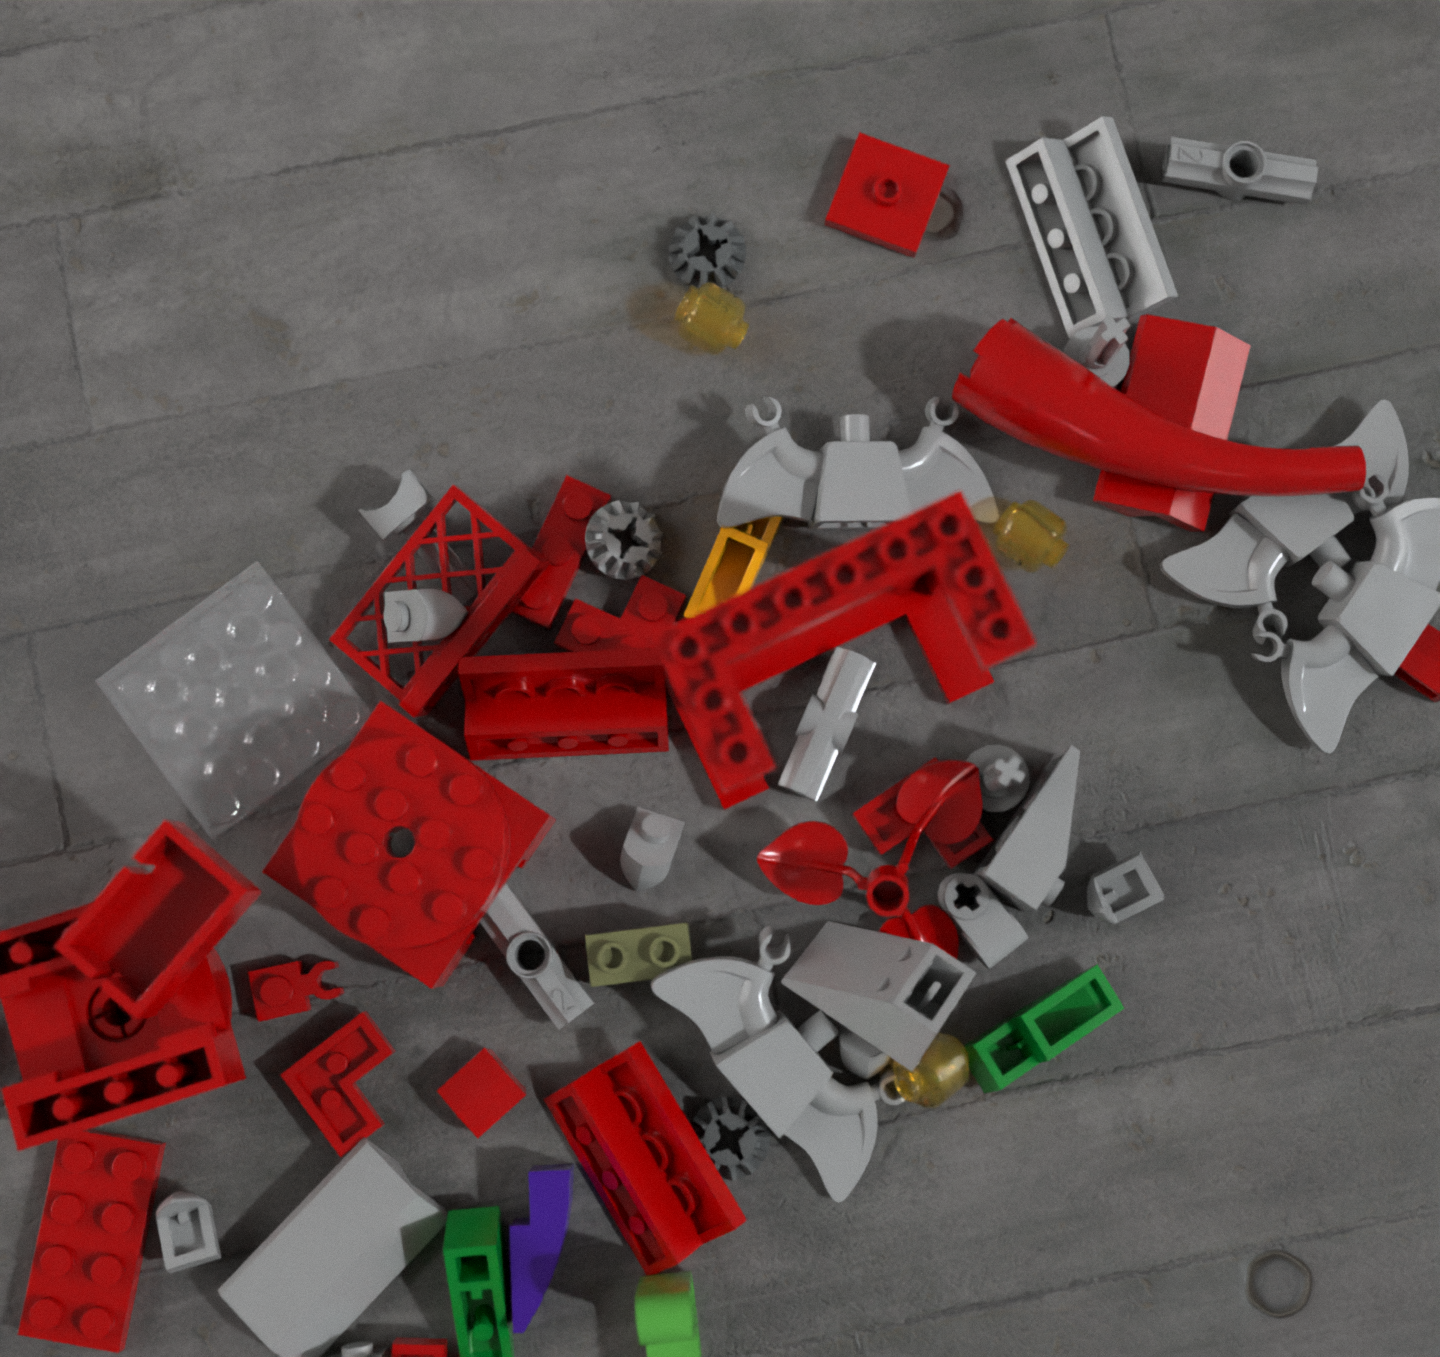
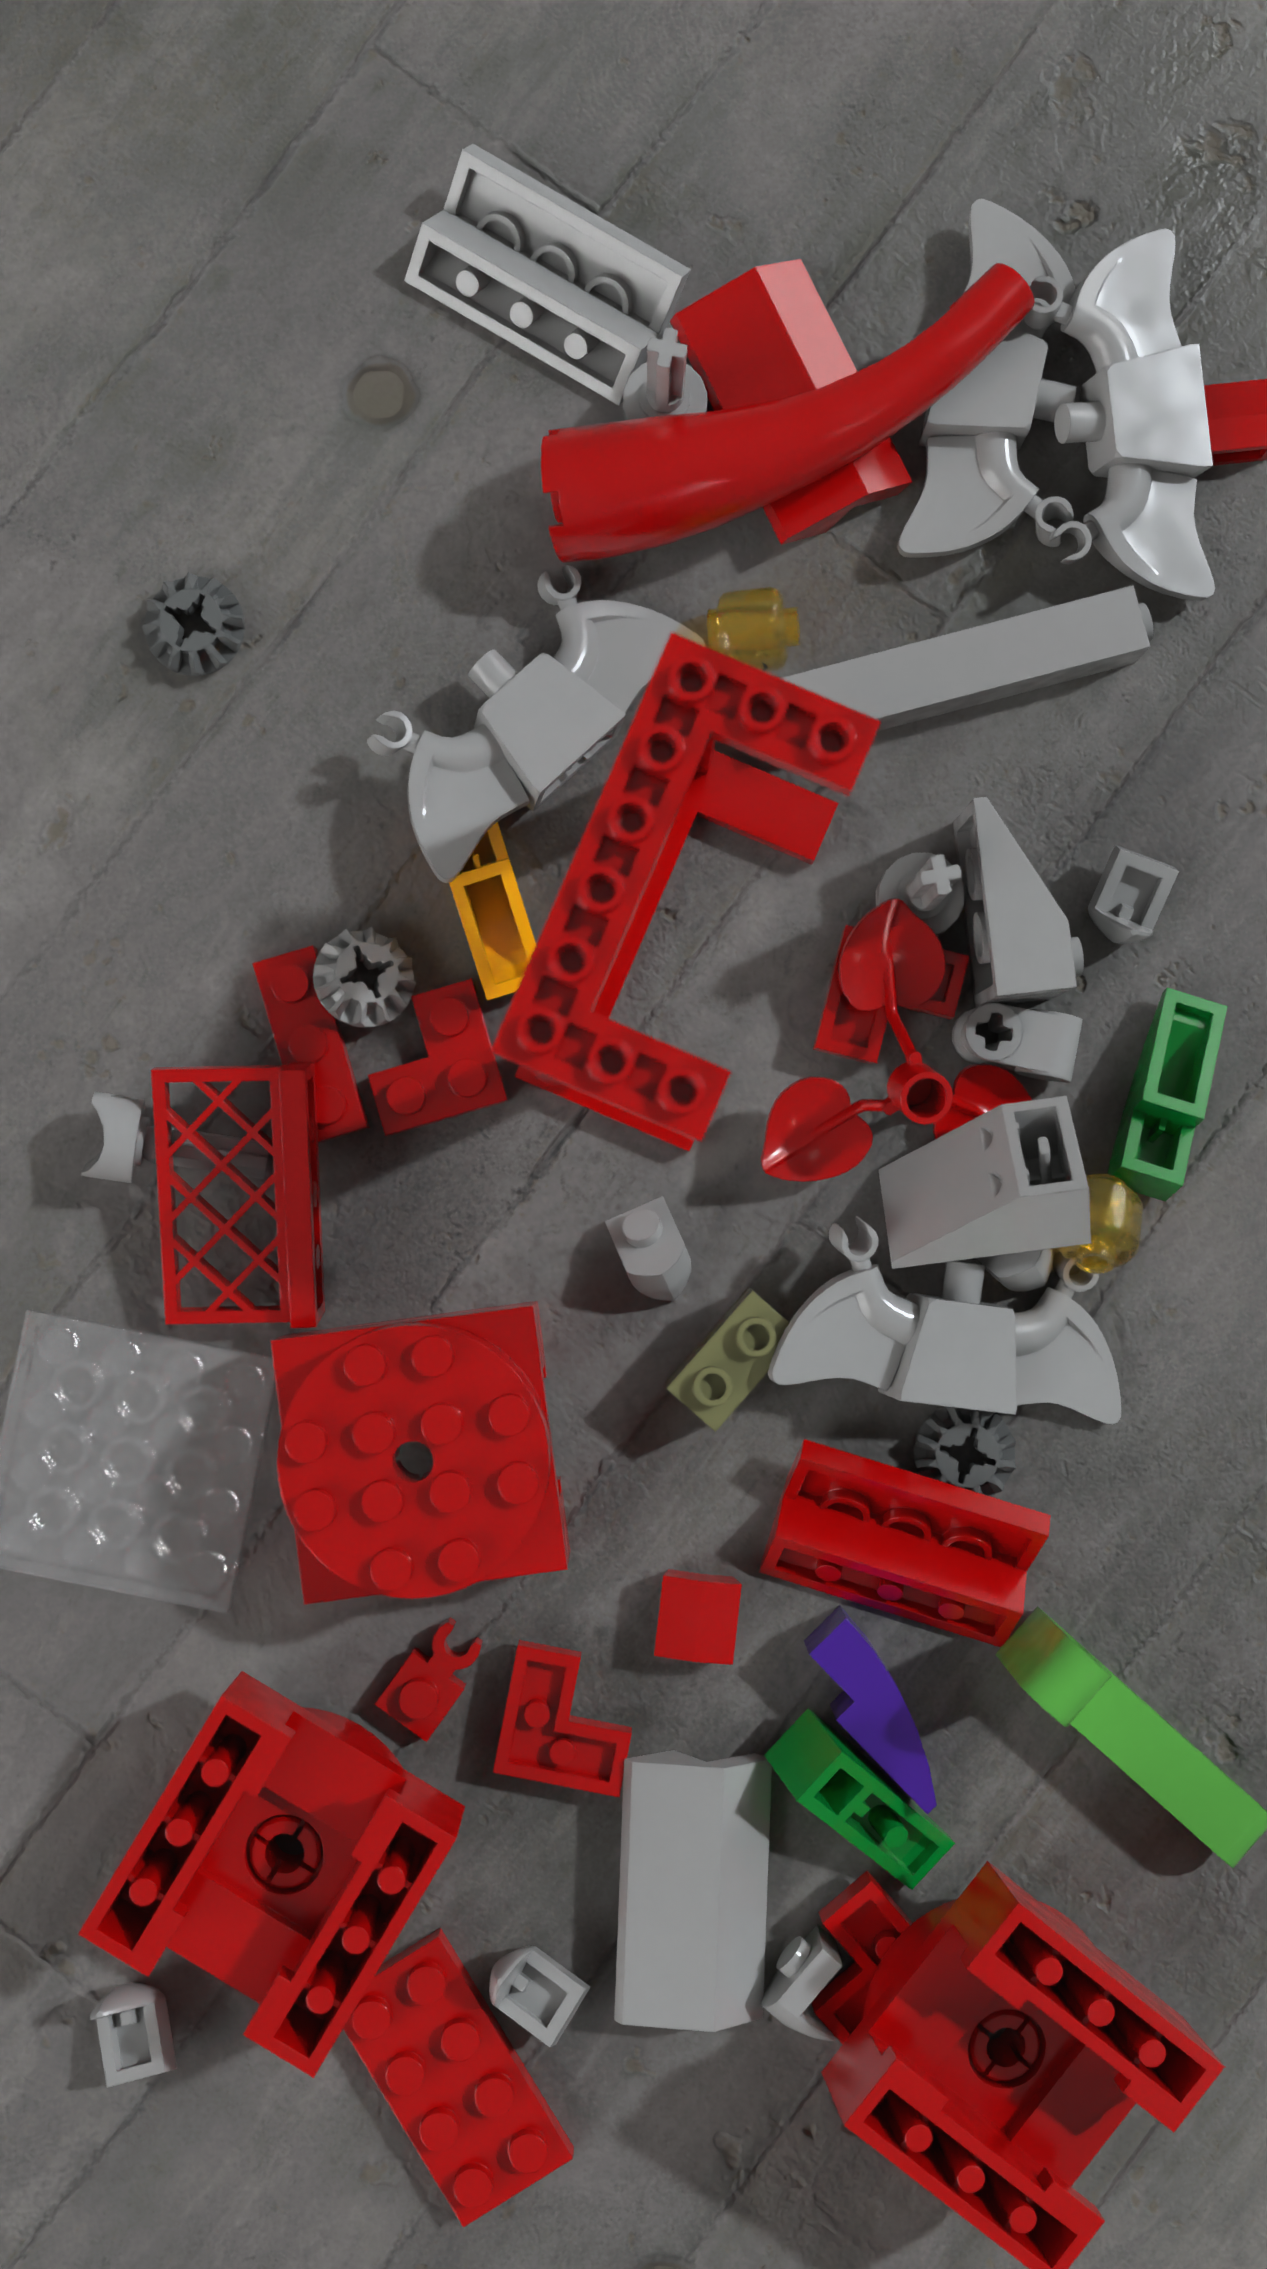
camera: 45 degrees left, 5 degrees up
(158, 922) = (250, 1747): red piece -> none
(421, 615) = (235, 1223): light grey plate -> none
(553, 981) = (672, 1458): light grey piece -> none
(564, 704) = (448, 1185): red slope -> none
(711, 318) = (256, 686): clear yellow head -> none
(826, 724) = (715, 981): light grey piece -> none
(886, 195) = (318, 414): red plate -> none
(1146, 669) = (989, 660): none -> light grey brick
(1269, 174) = (671, 70): light grey piece -> none

